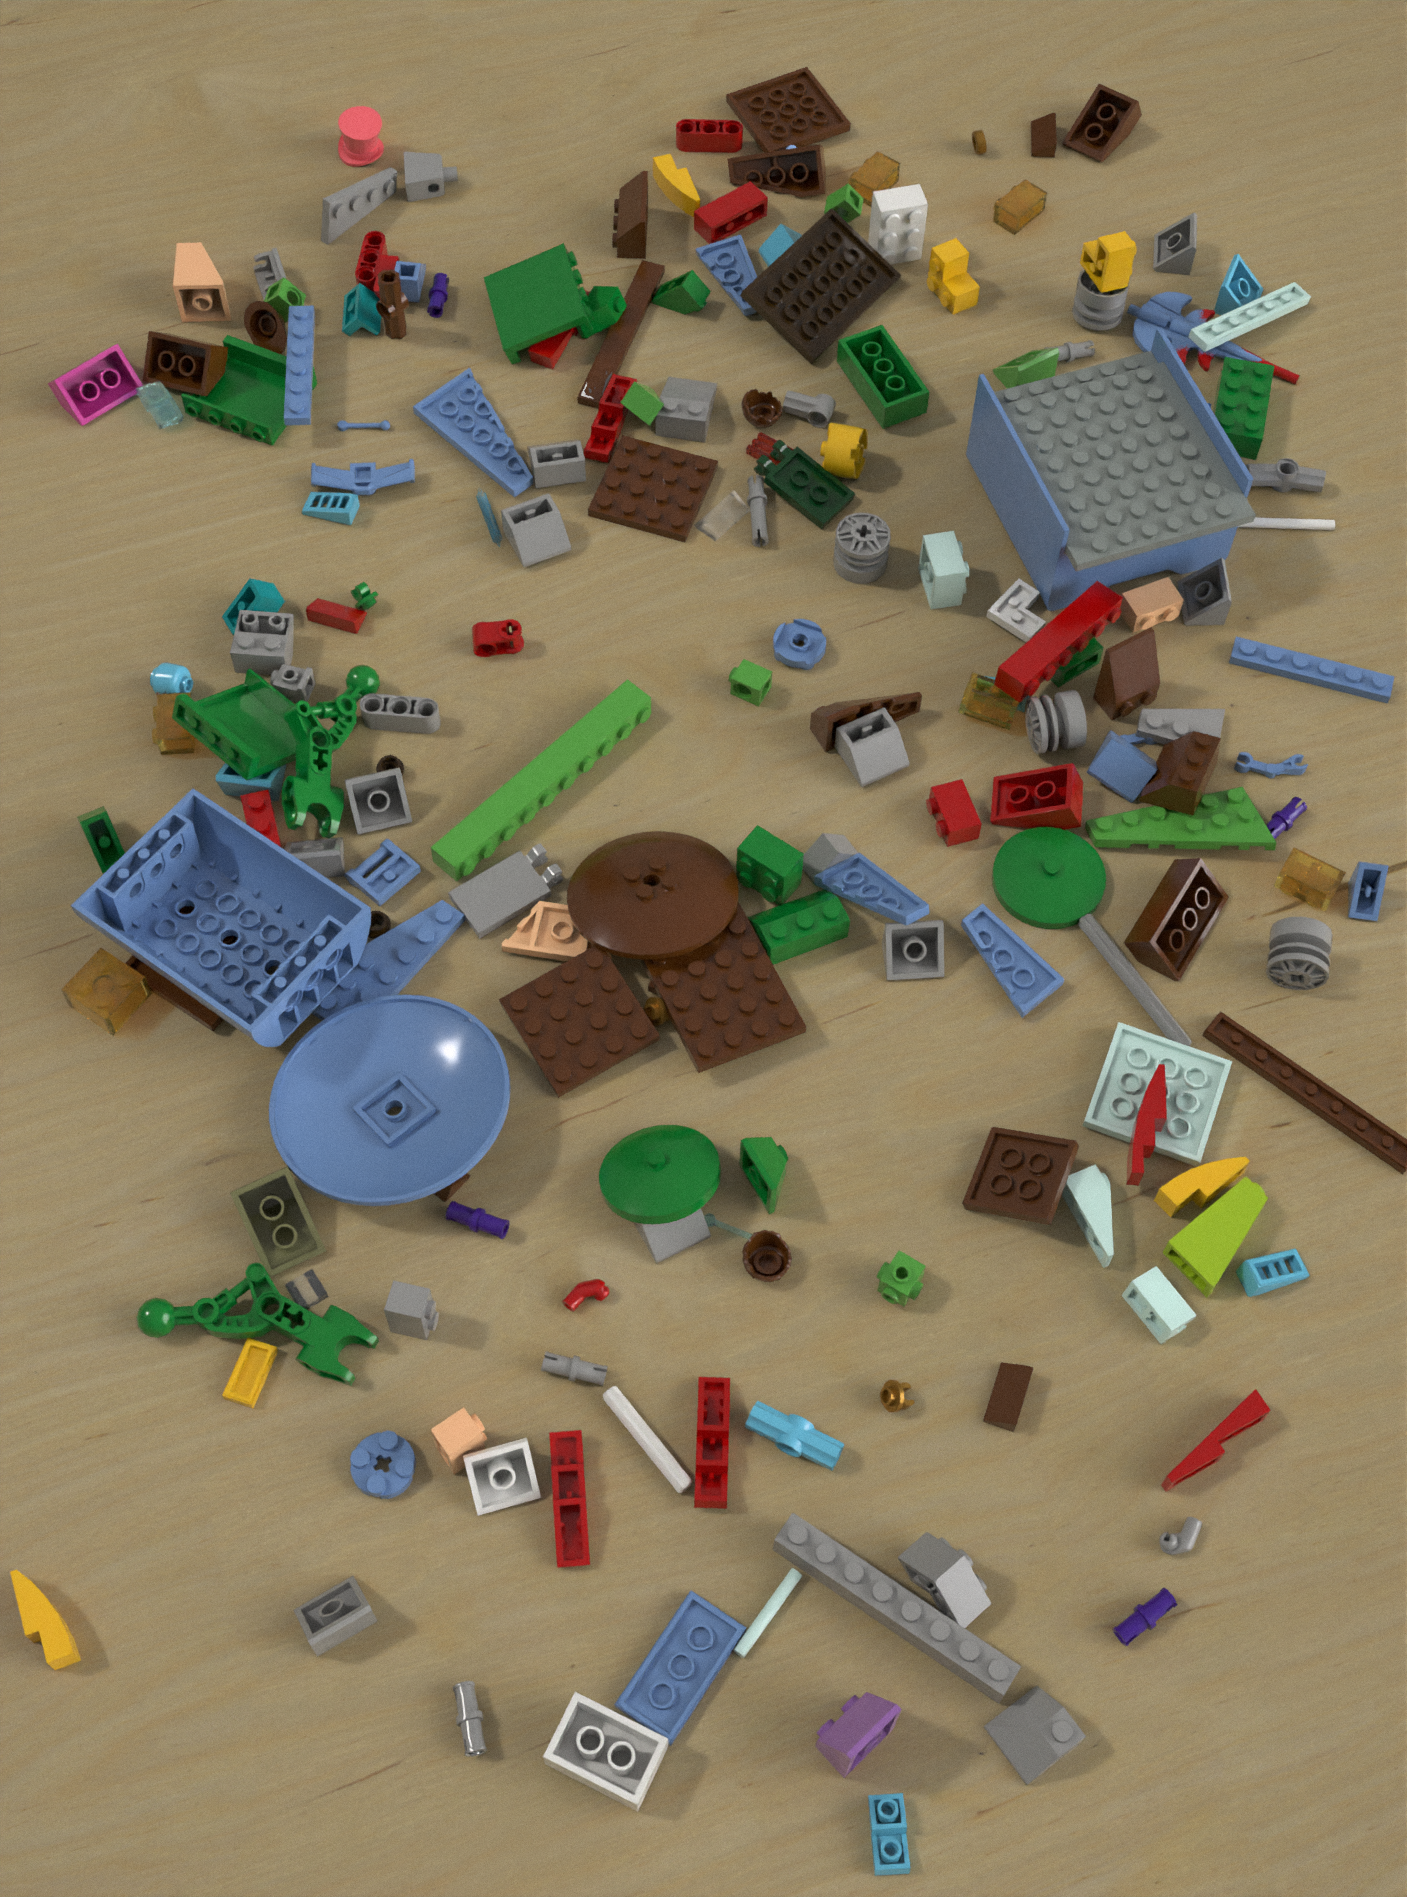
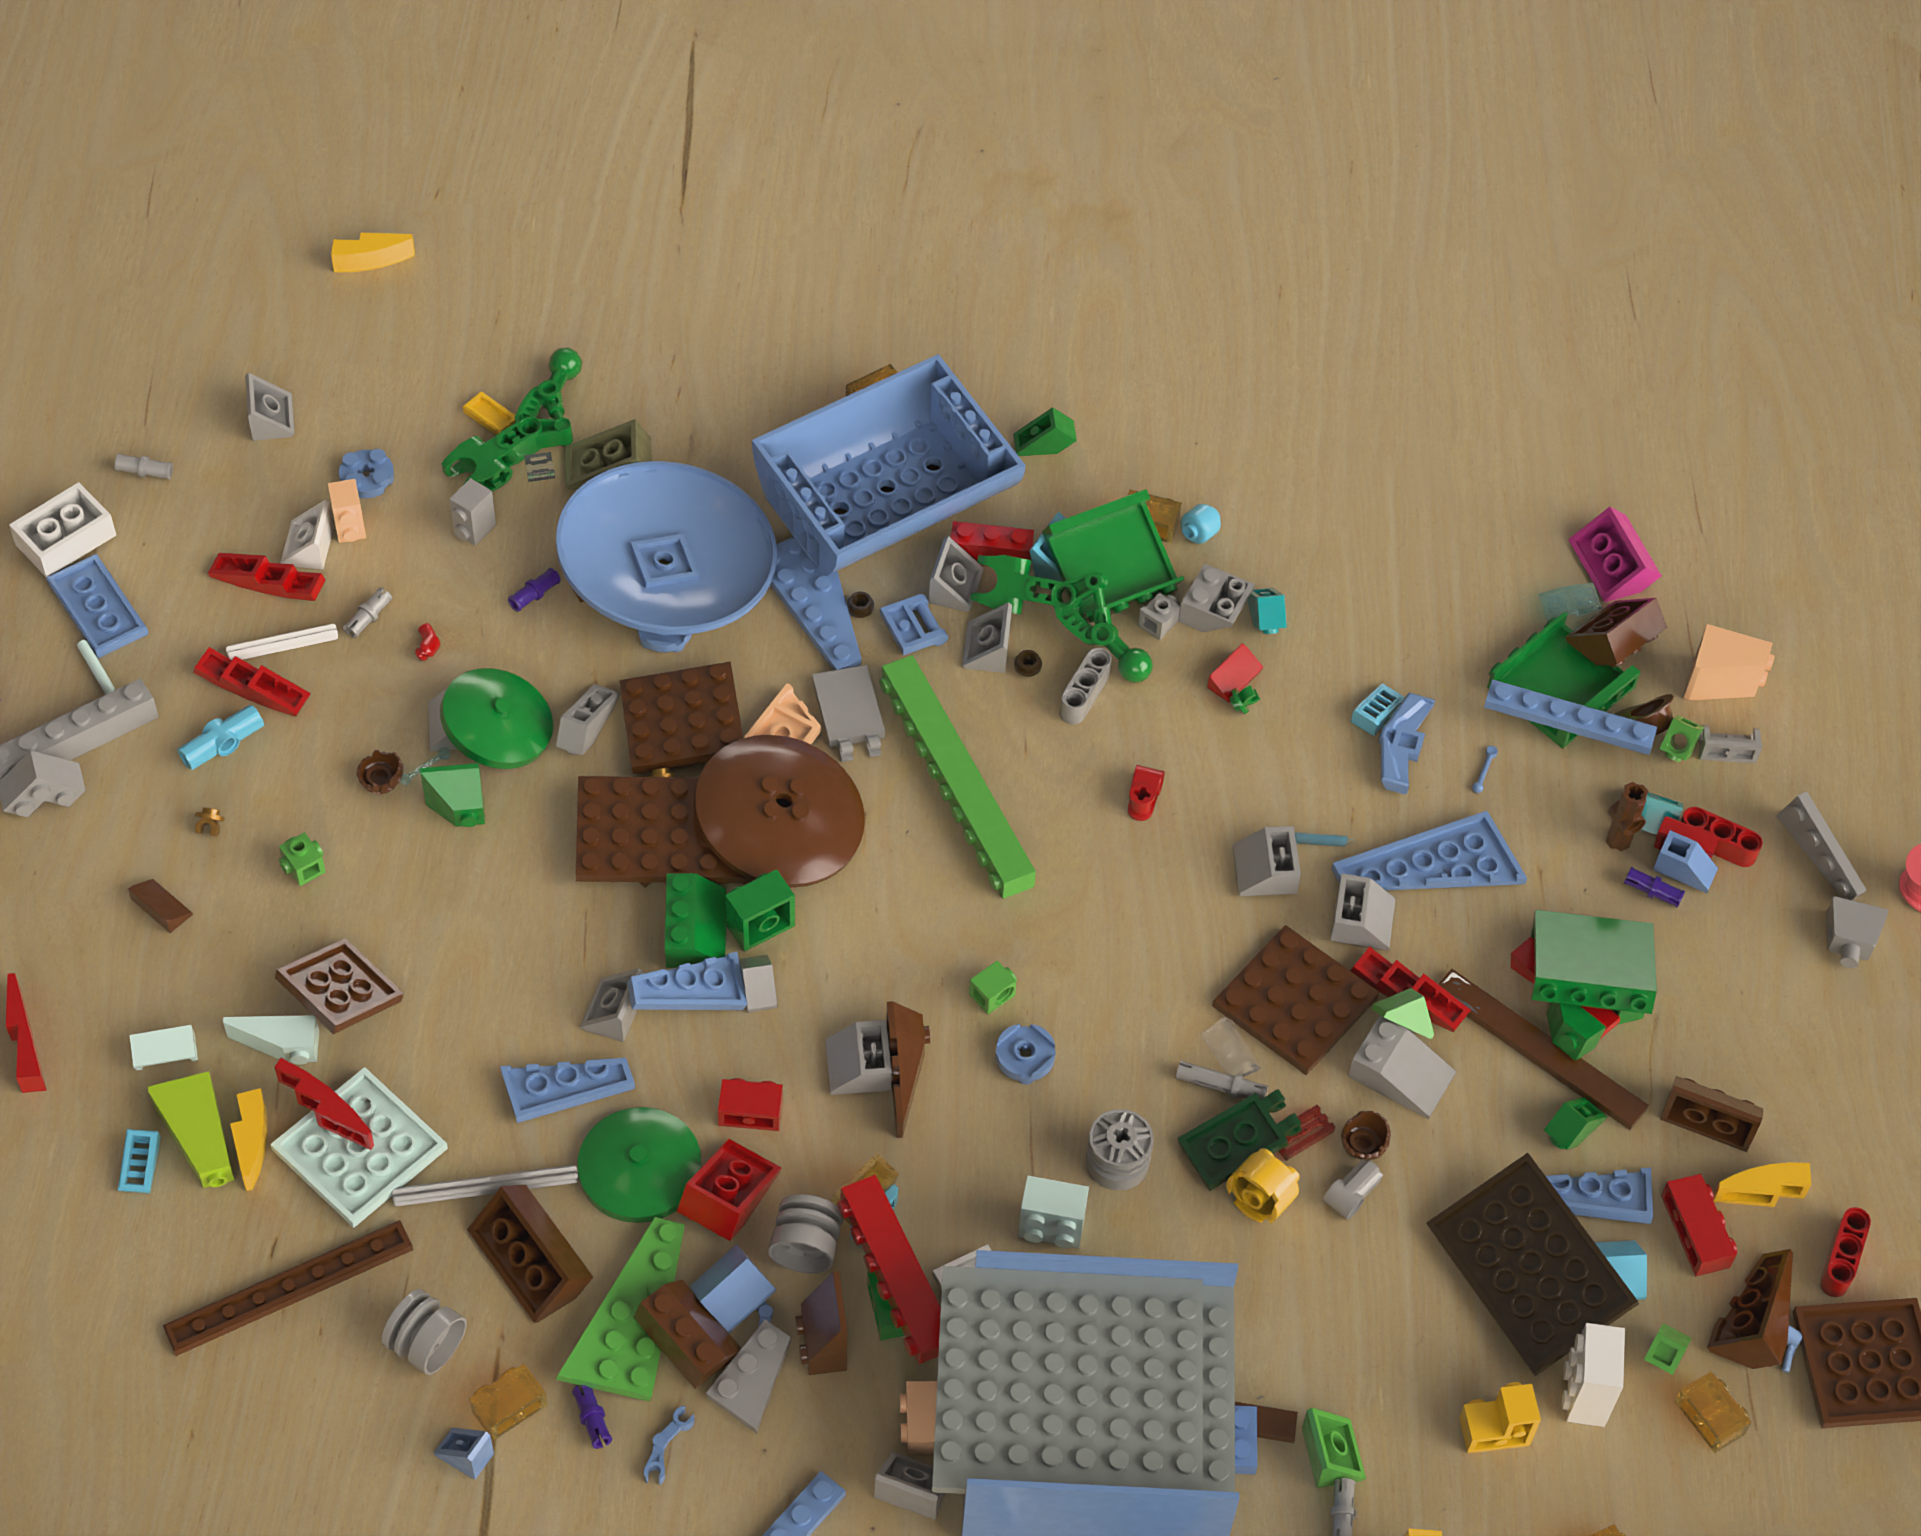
camera: 110 degrees right, 5 degrees down
(619, 1099) = (585, 719): none -> light grey slope
(882, 376) = (1366, 1275): green brick -> none

